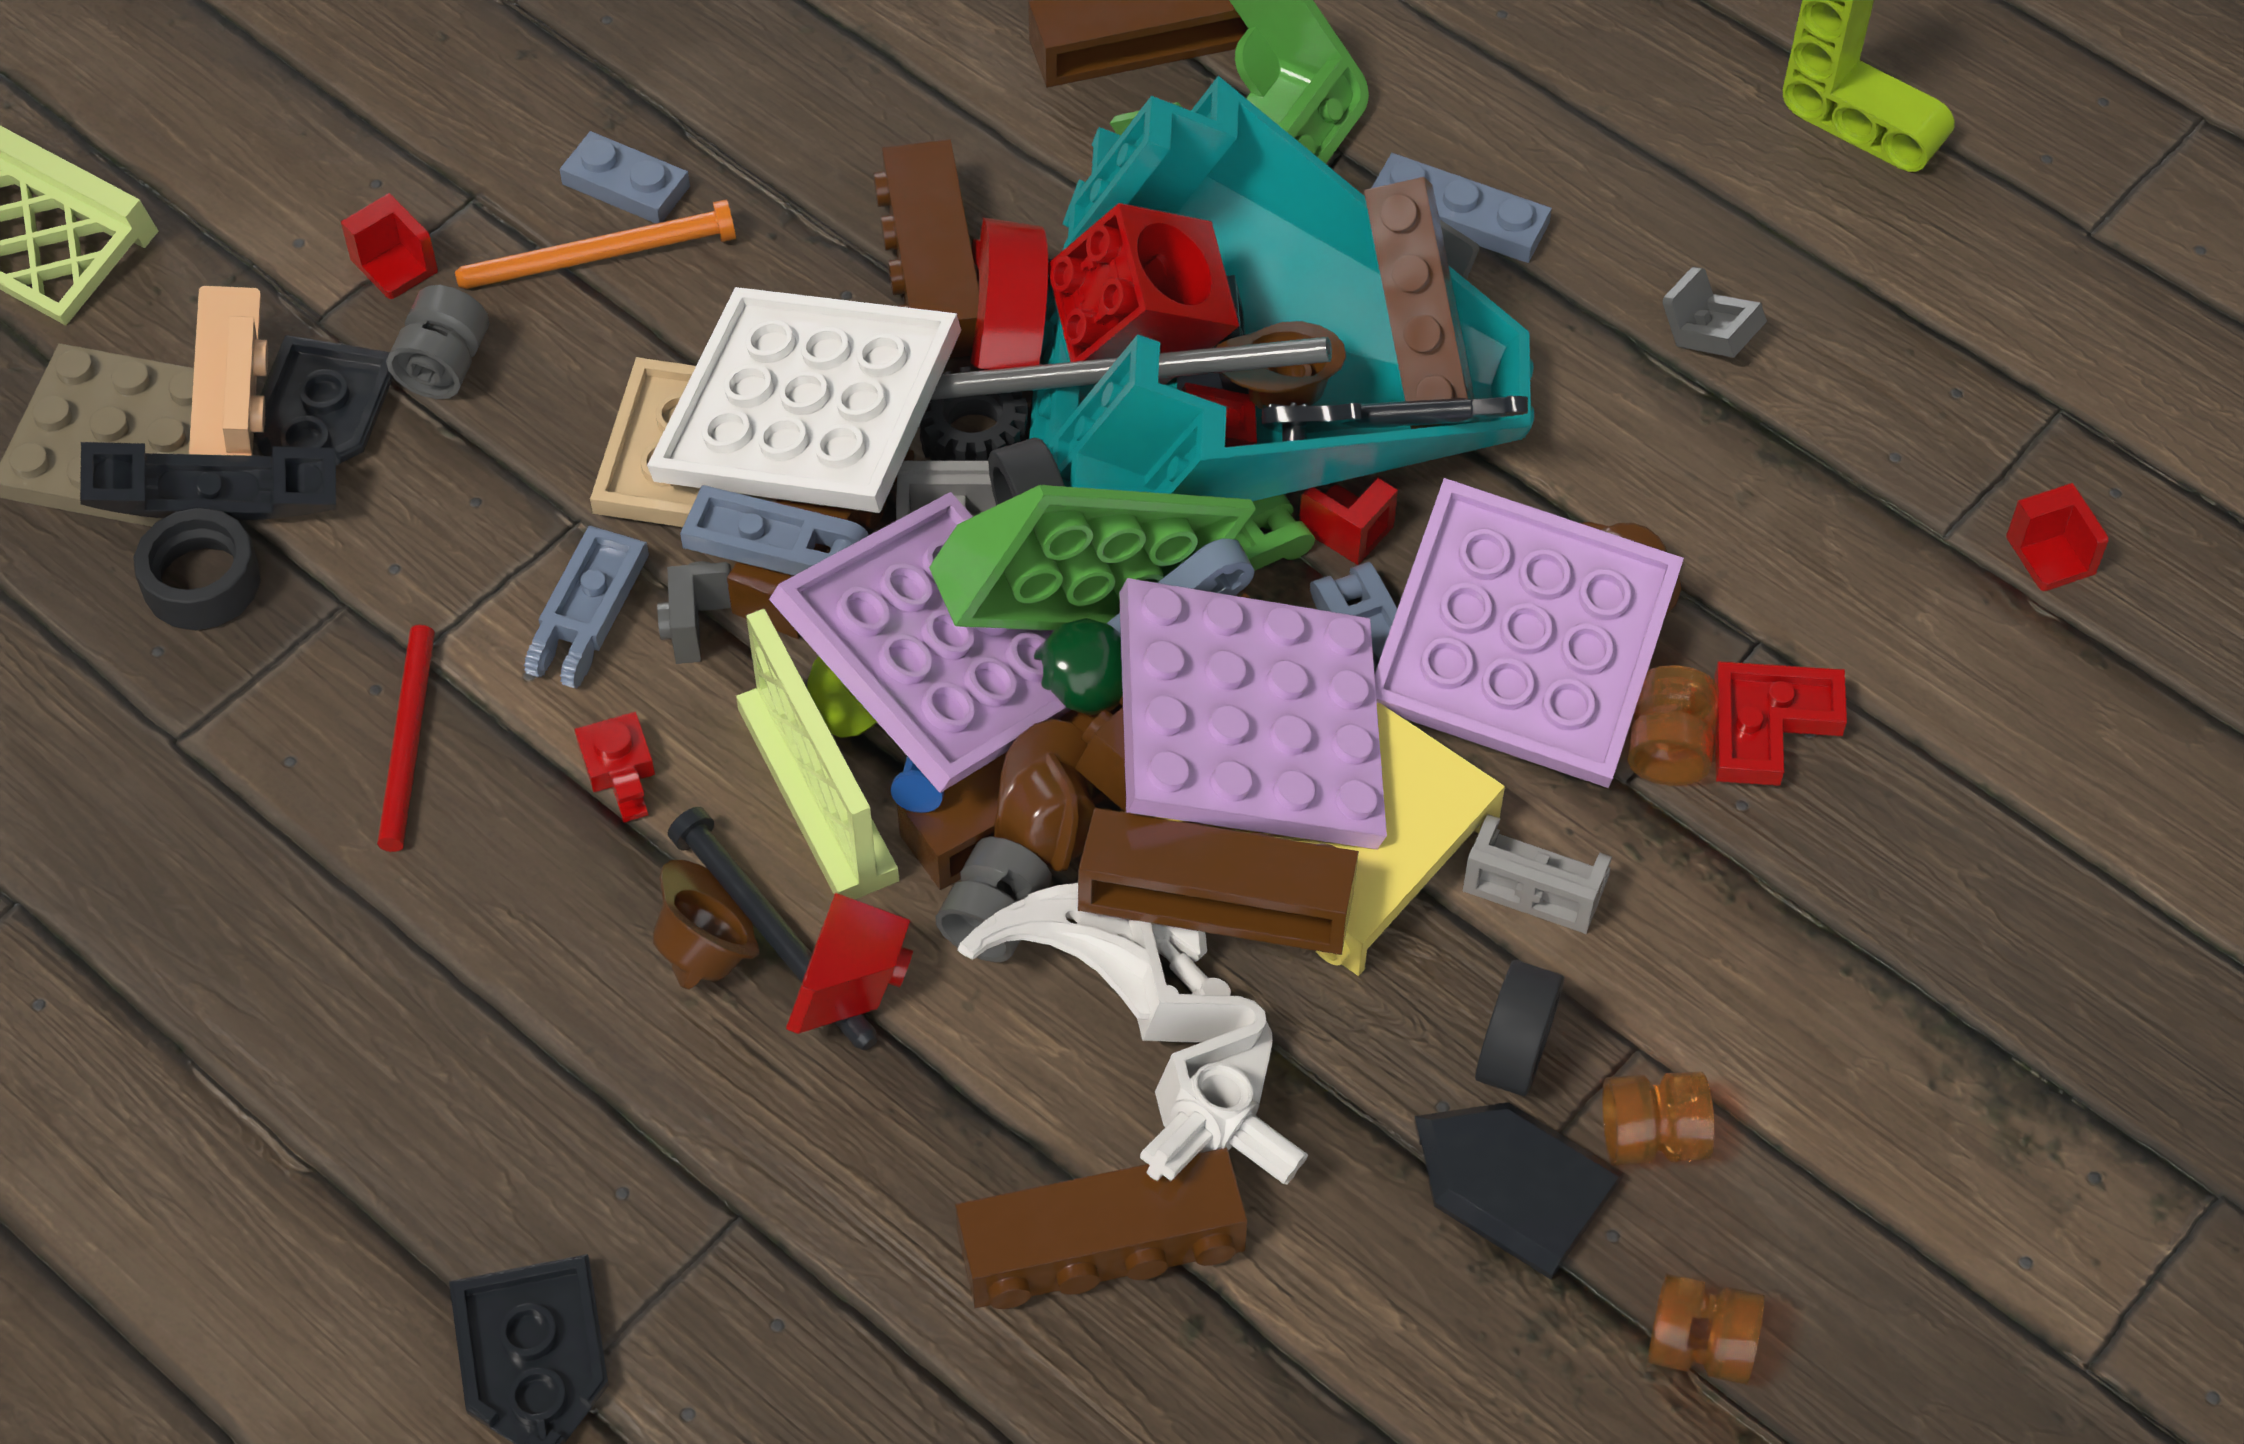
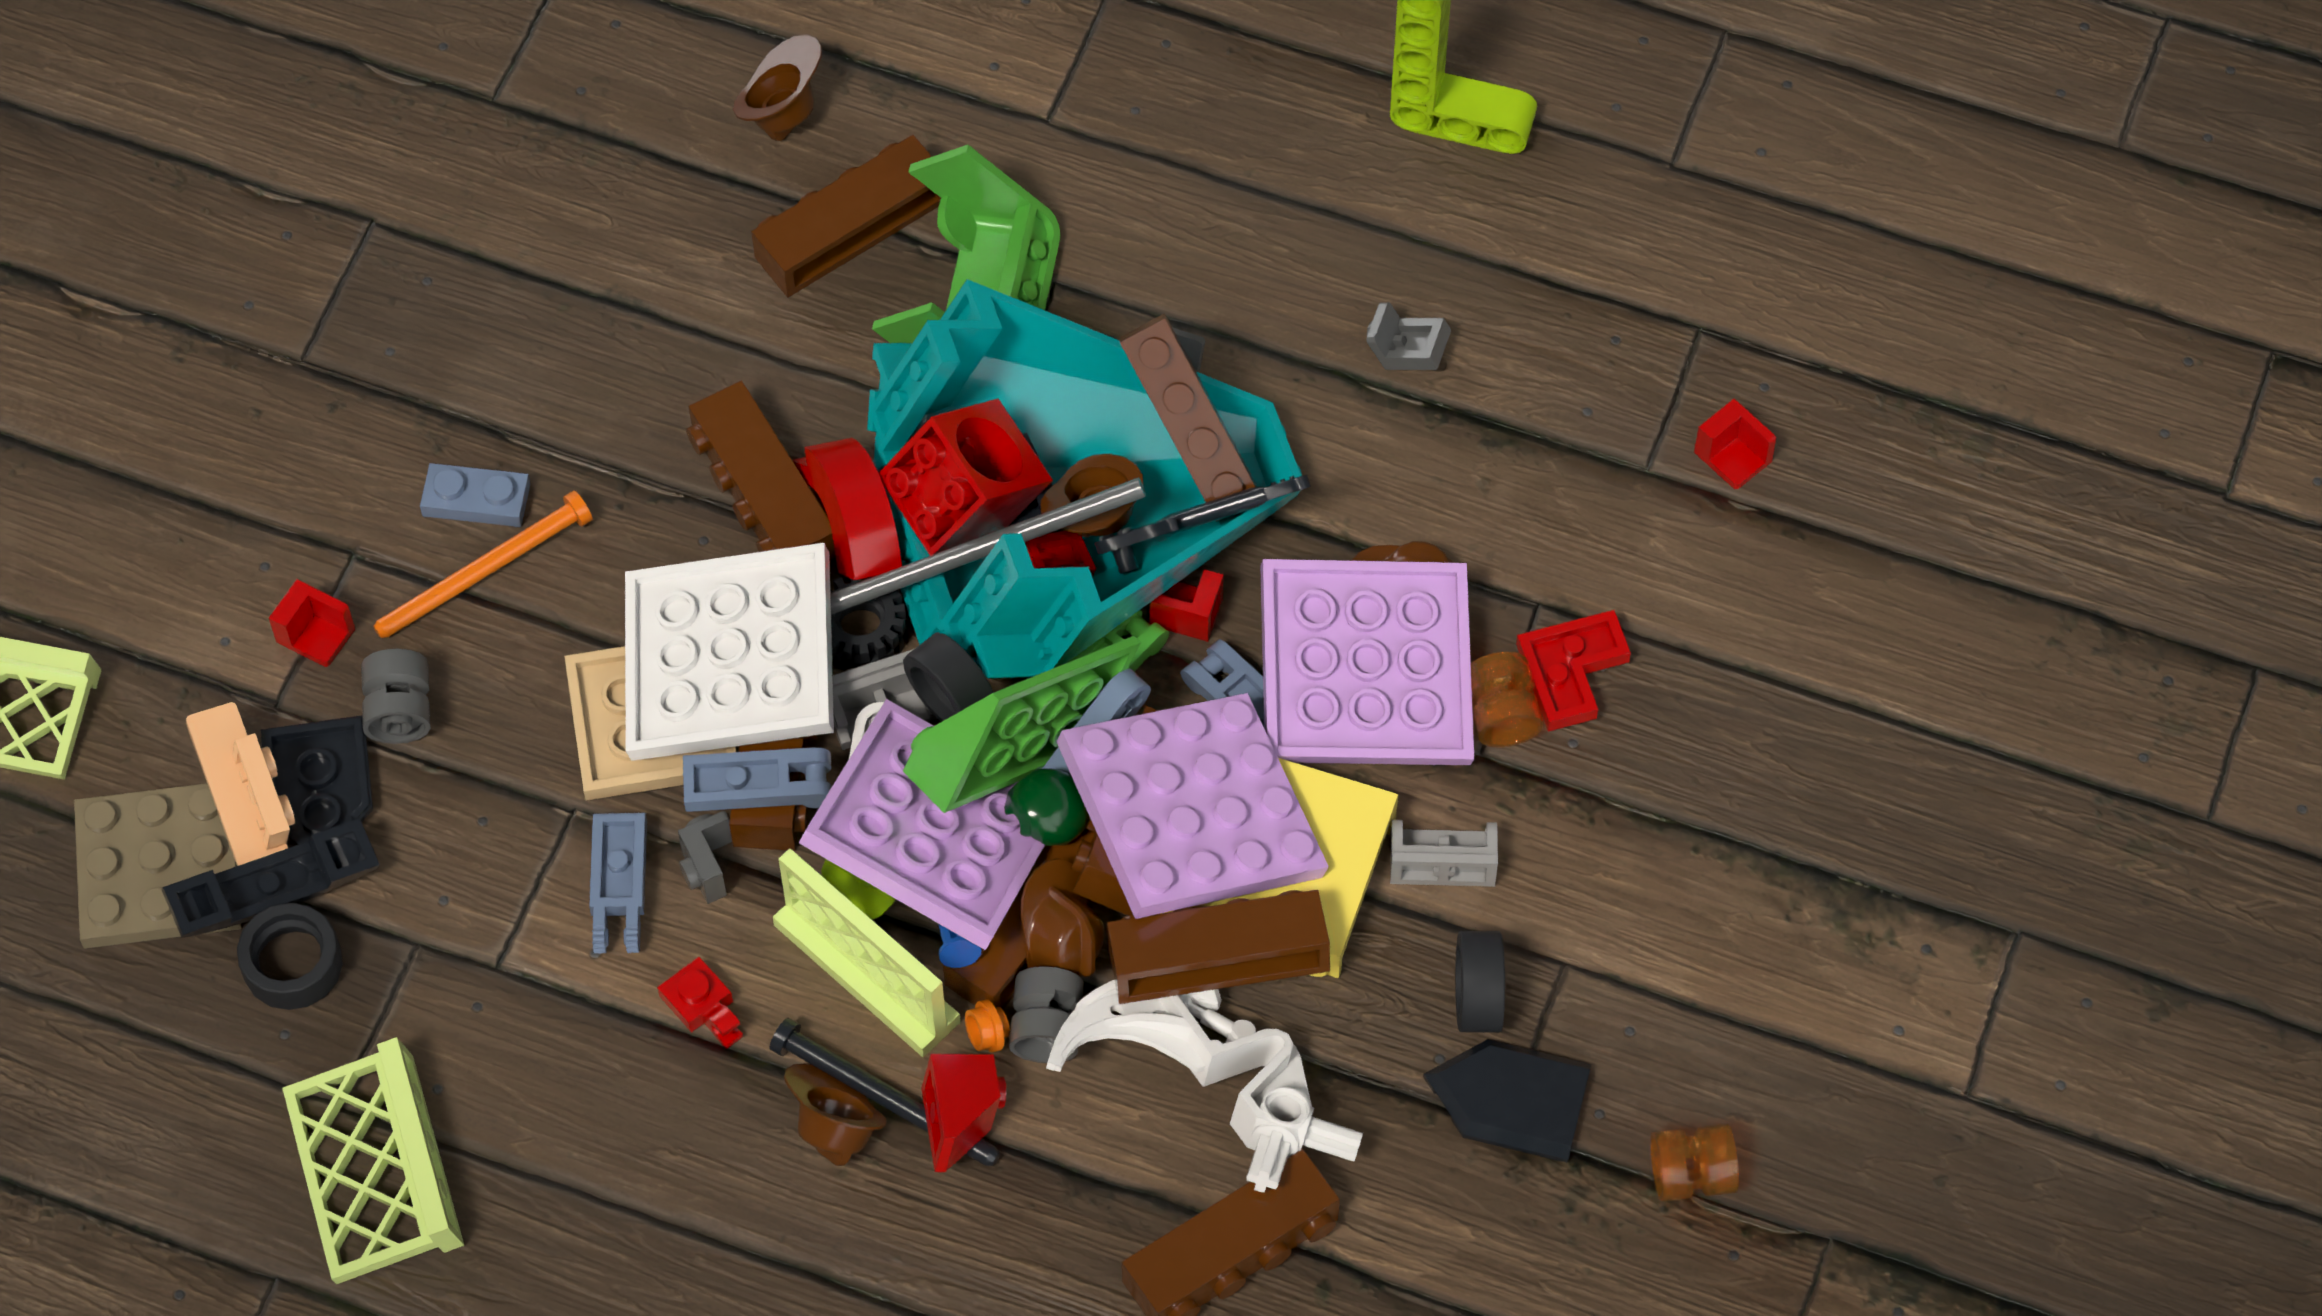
camera: 20 degrees left, 5 degrees up
(229, 821) = (417, 1152): none -> yellowish green fence
(406, 739) = (524, 1038): red bar -> none
(921, 890) = (987, 1026): none -> orange plate
(1477, 210) = (1186, 301): sand blue plate -> none
(1658, 1118) = (1611, 1012): clear orange wheel -> none

